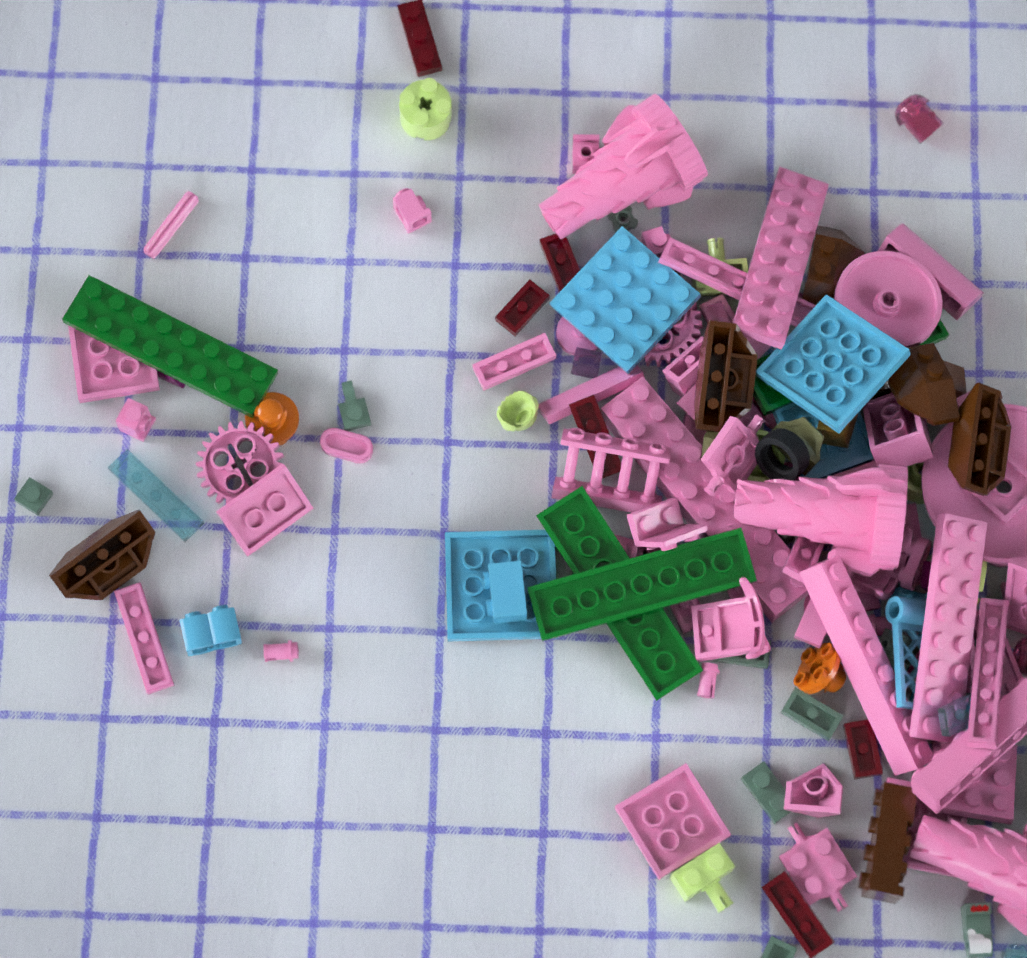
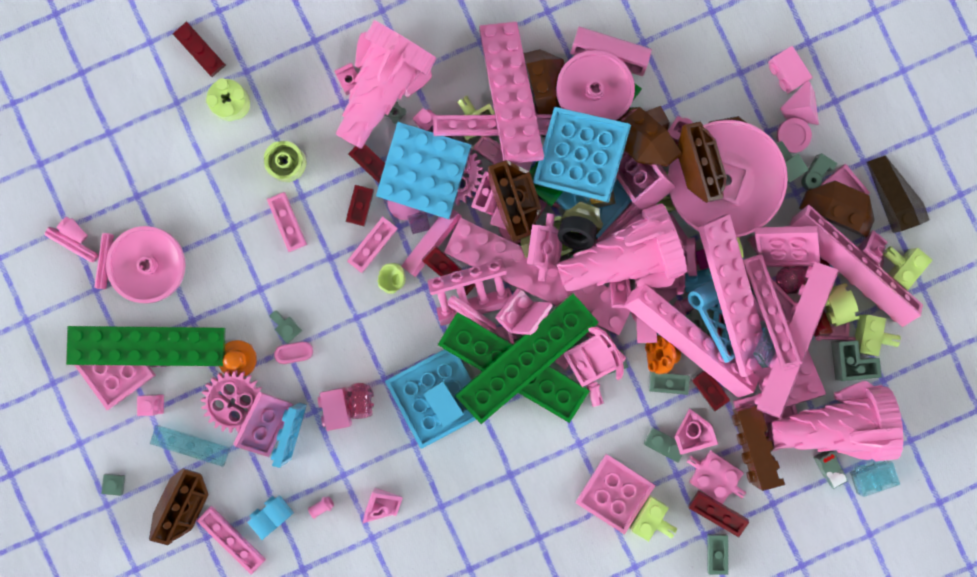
camera: 25 degrees left, 15 degrees up
(142, 187) = (71, 244): none -> bright pink axle
(152, 168) = (72, 230): none -> bright pink cone
(222, 250) = (145, 264): none -> bright pink dish
(293, 531) = (288, 435): none -> medium azure plate
(358, 687) = (381, 505): none -> bright pink slope
(363, 536) = (335, 409): none -> bright pink brick
(401, 539) = (359, 400): none -> clear pink piece
(411, 210) = (254, 174): bright pink brick -> none
(420, 285) = (286, 222): none -> bright pink tile
(470, 215) = (275, 167): none -> yellowish green brick
(597, 495) = (470, 313): none -> bright pink axle

